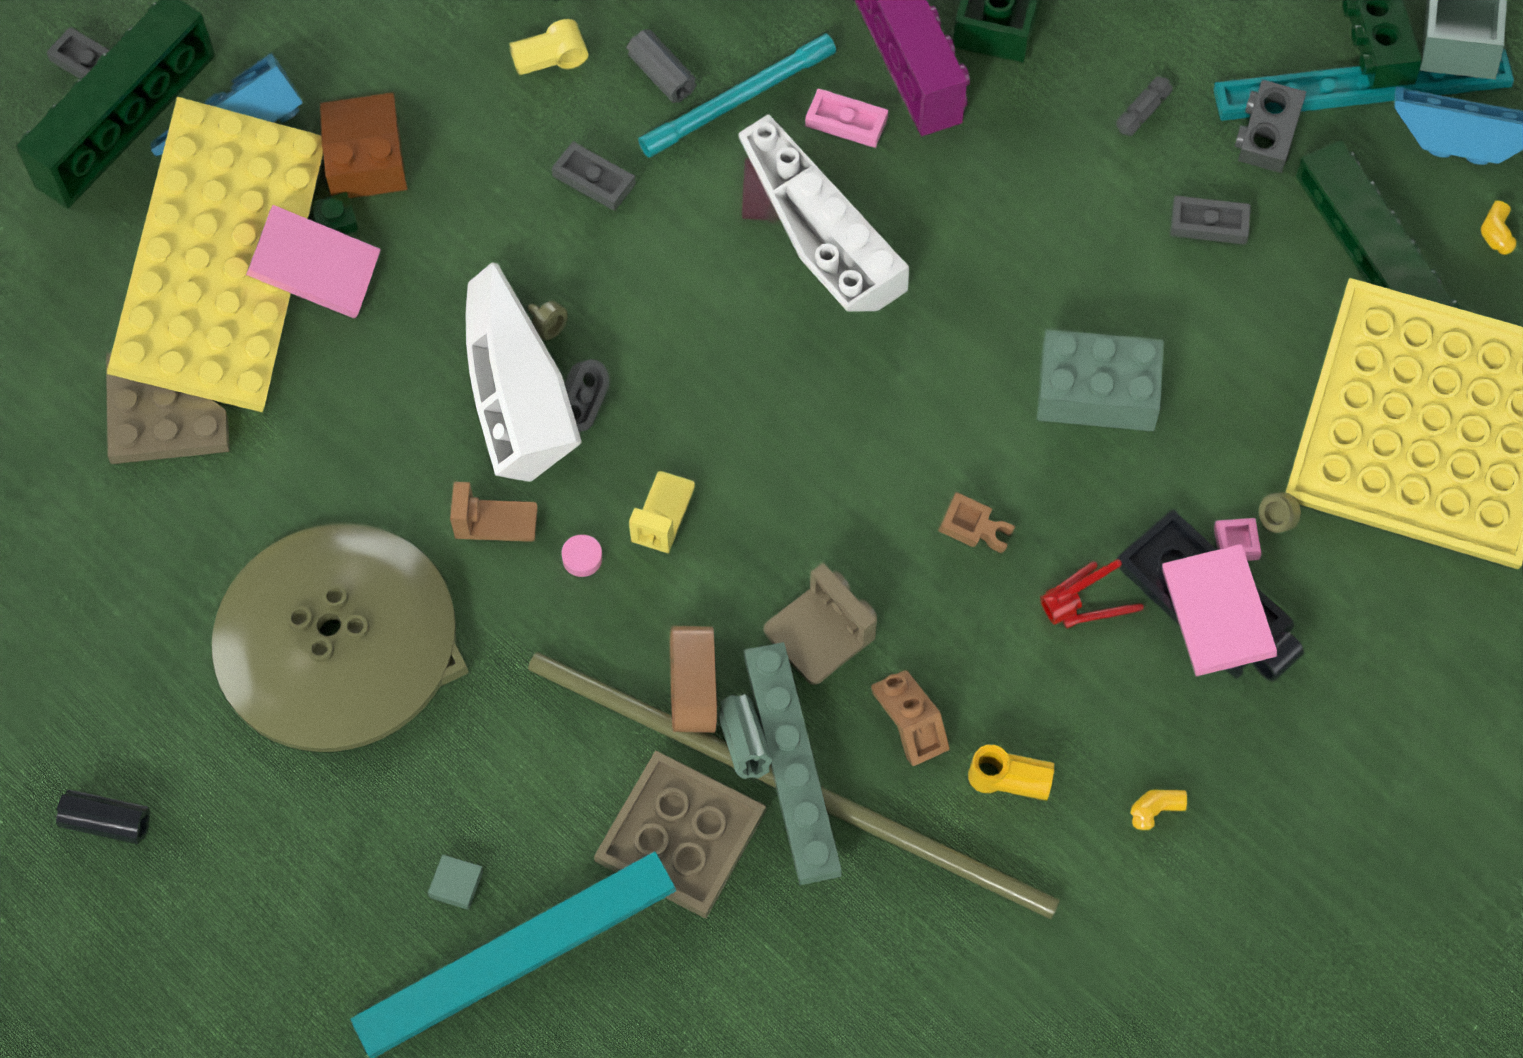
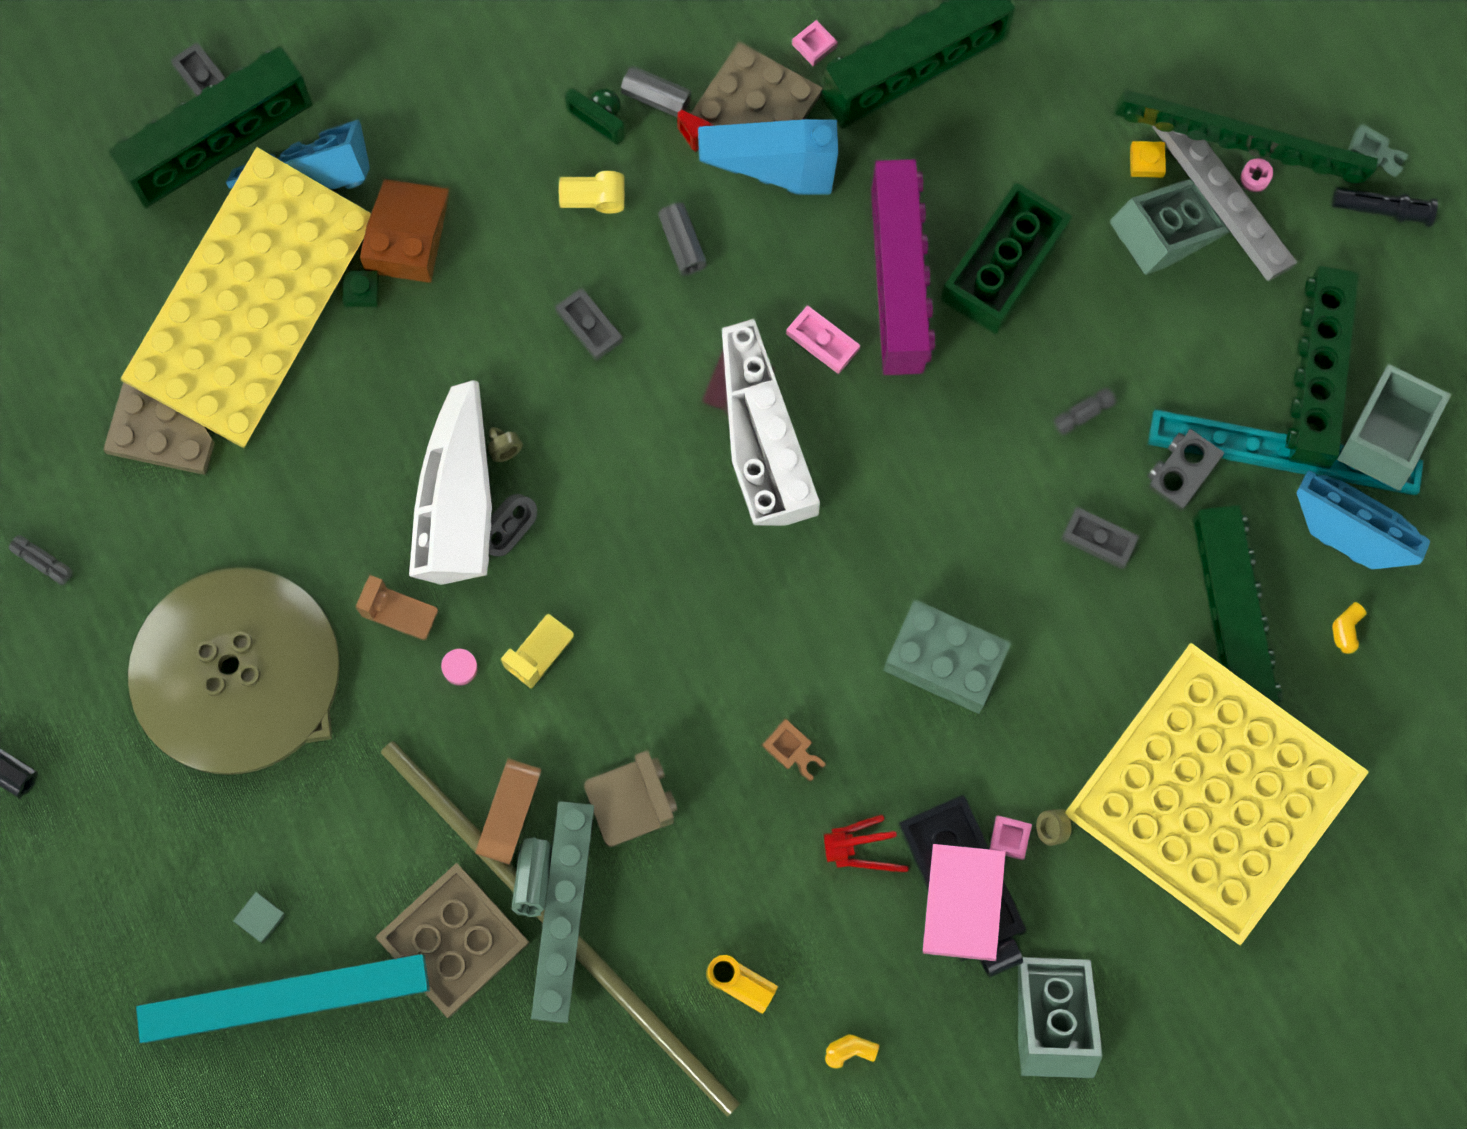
camera: 15 degrees right, 10 degrees up
(76, 590) = (40, 559): none -> dark grey axle
(313, 262) = (326, 330): bright pink tile -> none
(671, 132) = (668, 304): teal piece -> none
(915, 716) = (677, 902): medium nougat bracket -> none
(1364, 701) = (1057, 1018): none -> sand green slope

